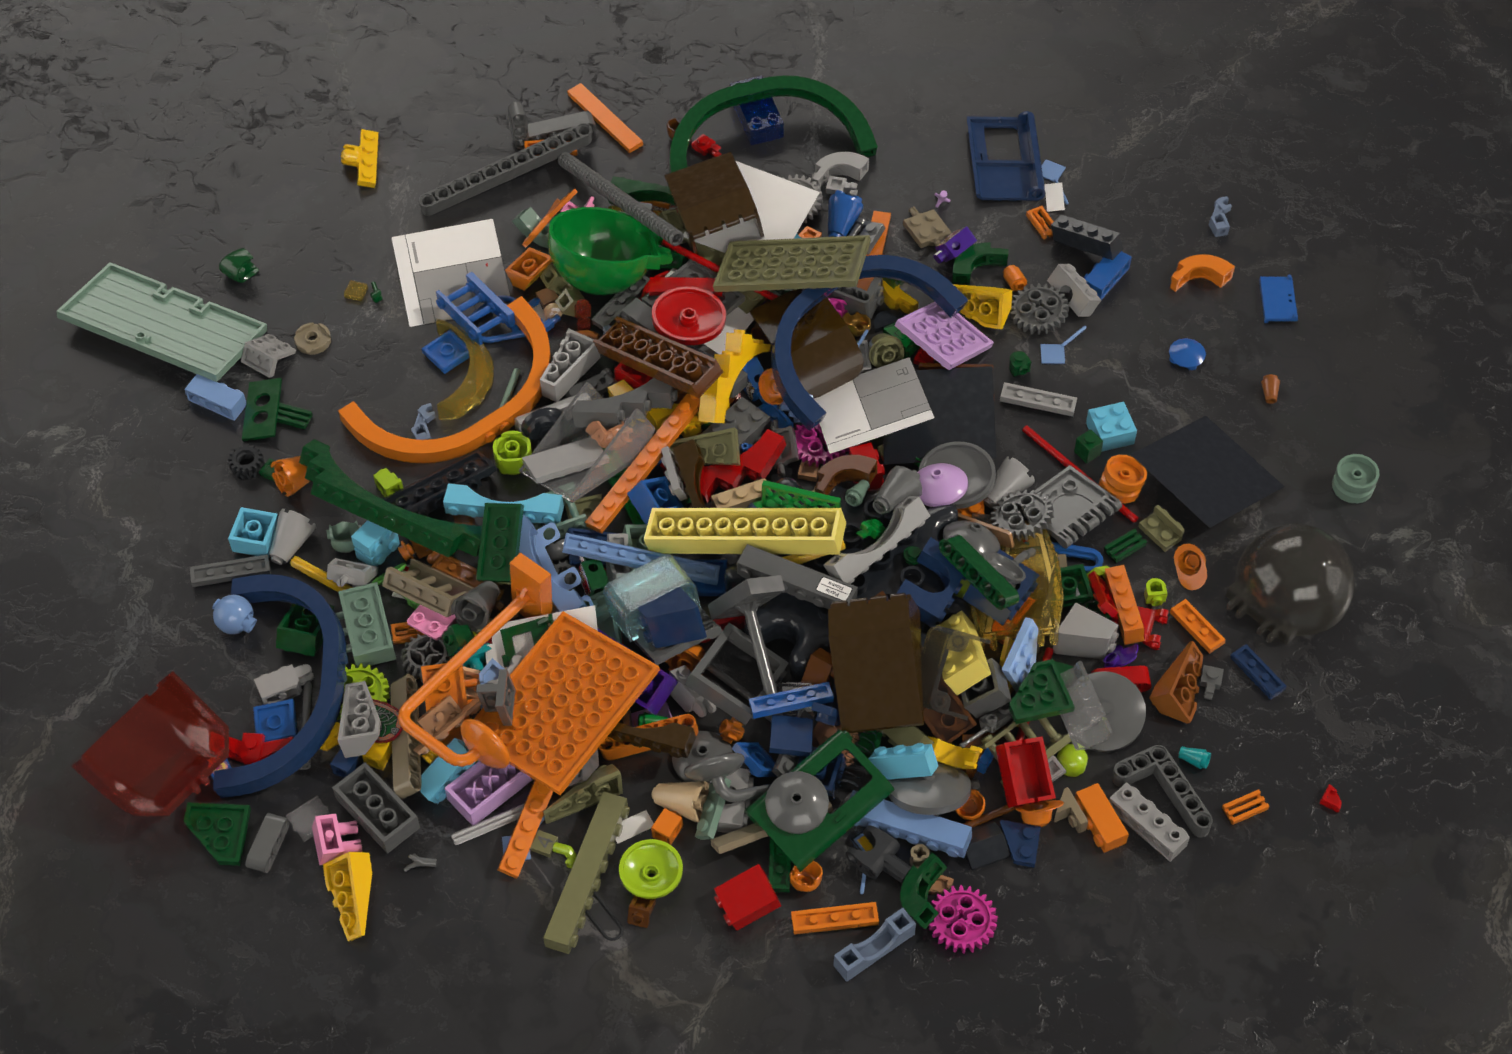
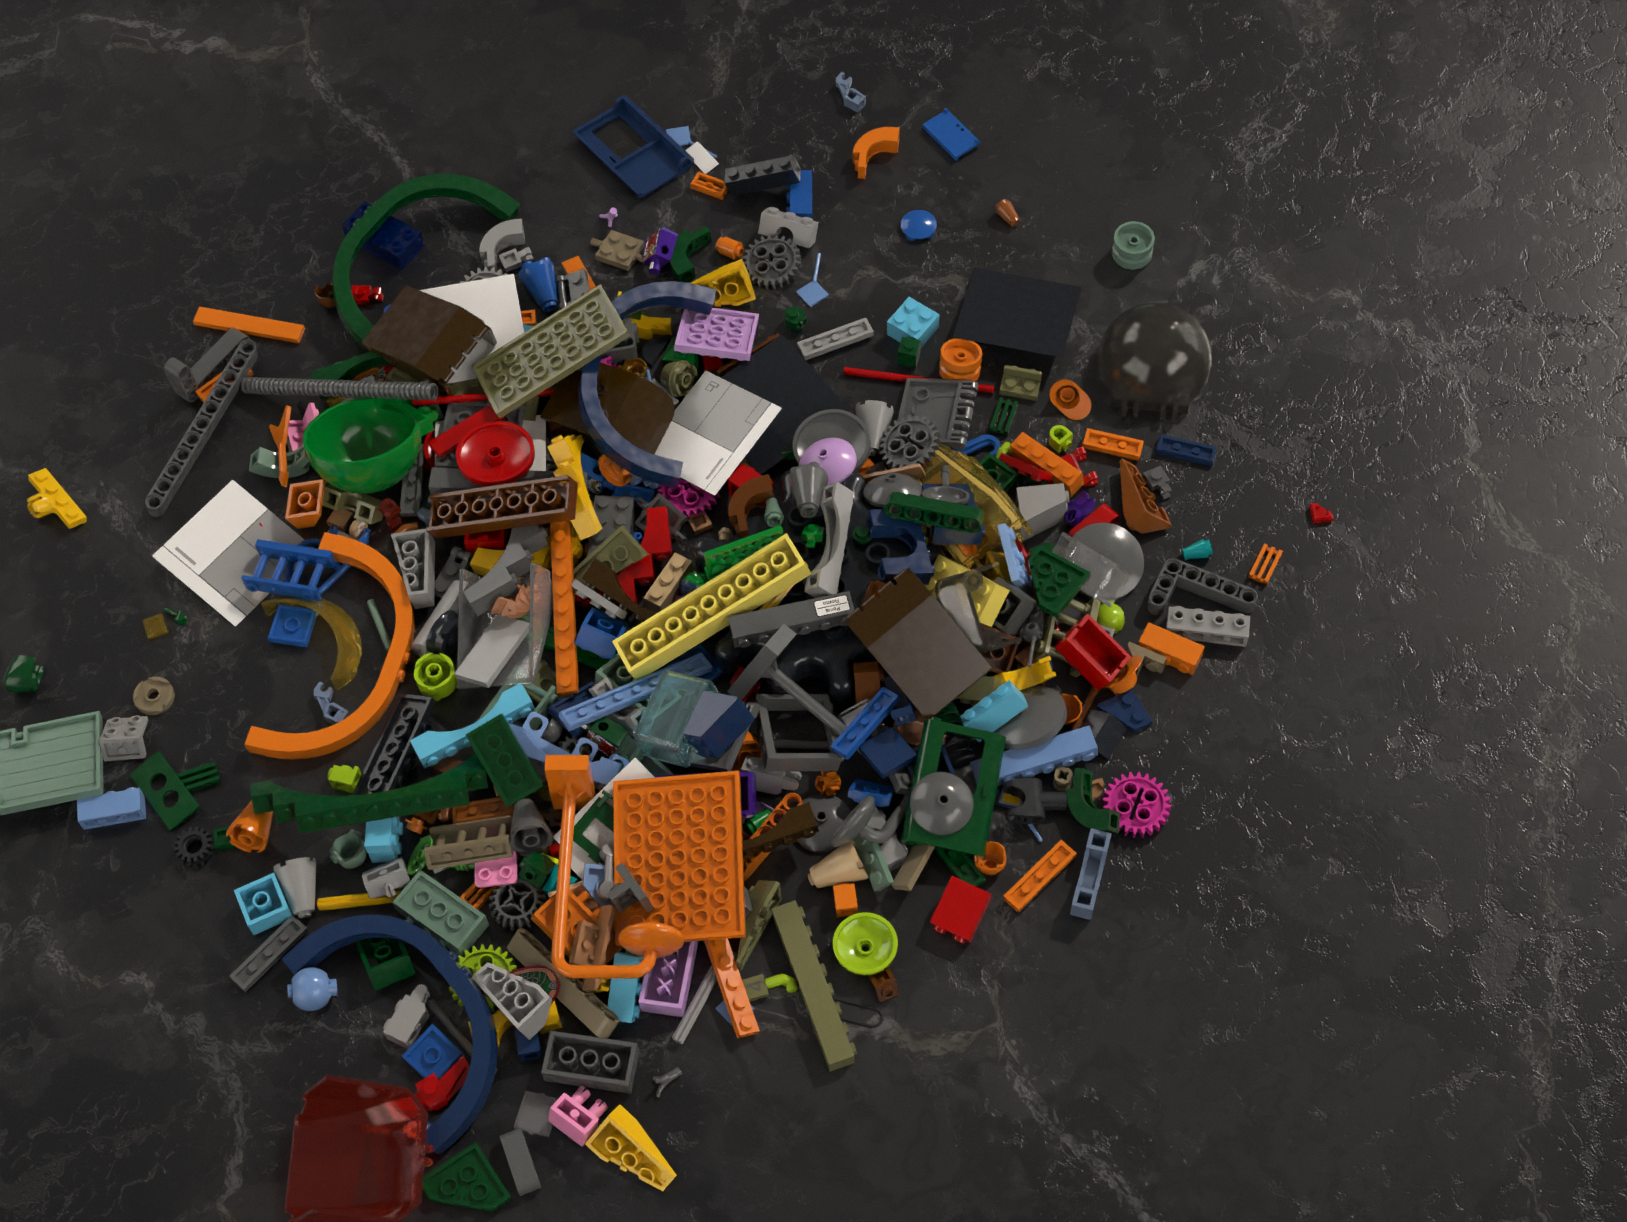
camera: 35 degrees left, 5 degrees up
(635, 825) = (815, 917): white sticker -> none

